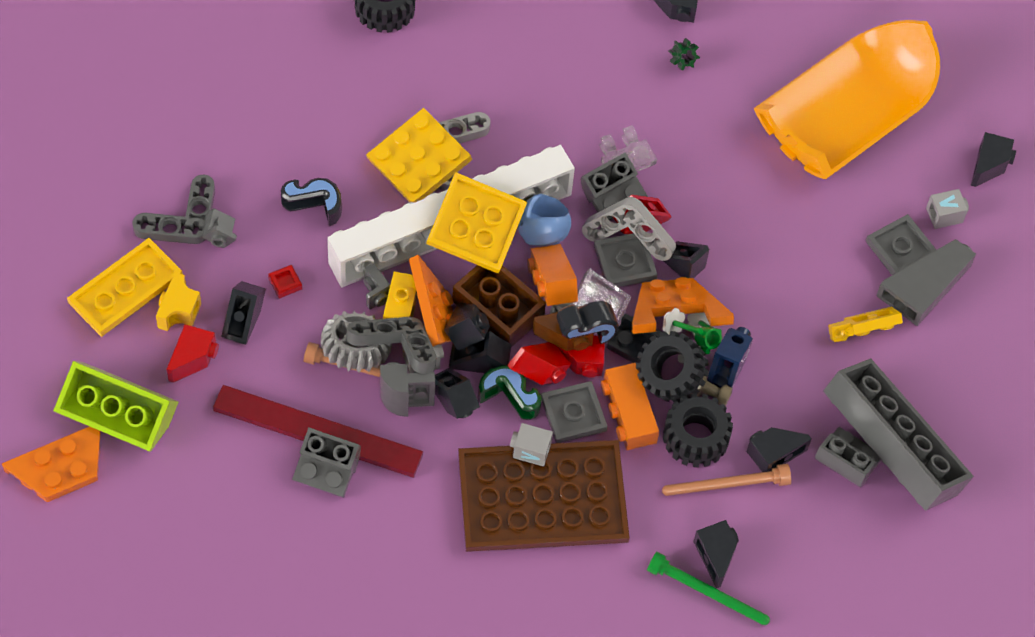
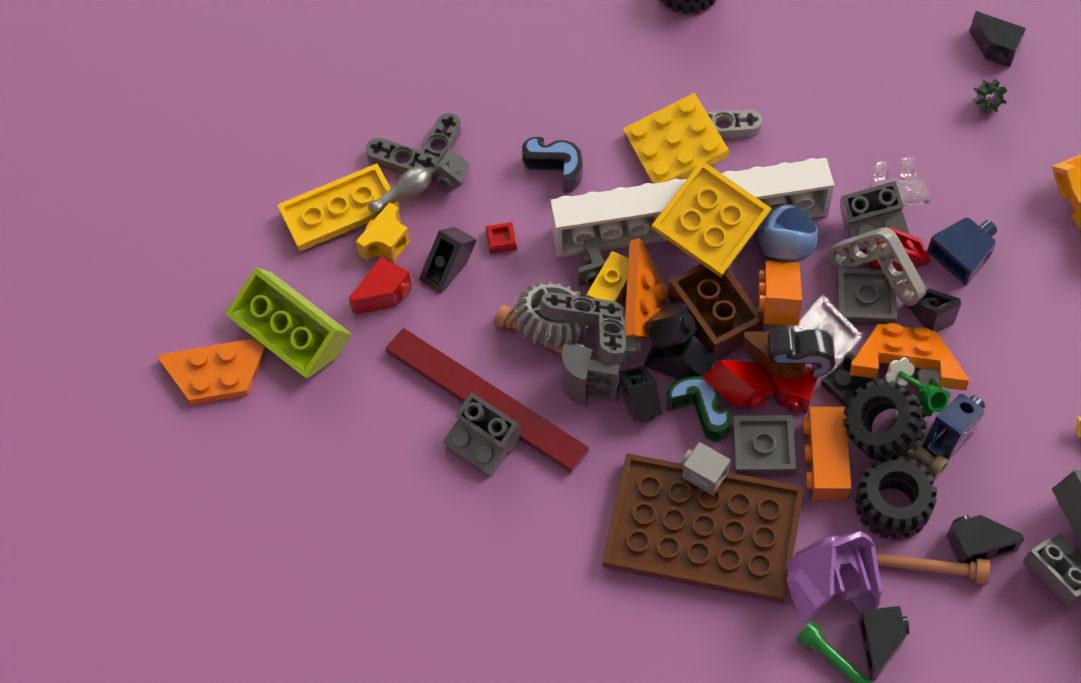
camera: 25 degrees right, 0 degrees up
(186, 251) = (408, 184): none -> flat silver piece
(663, 501) = (834, 567): none -> medium lavender piece
(697, 198) = (964, 247): none -> dark blue torso

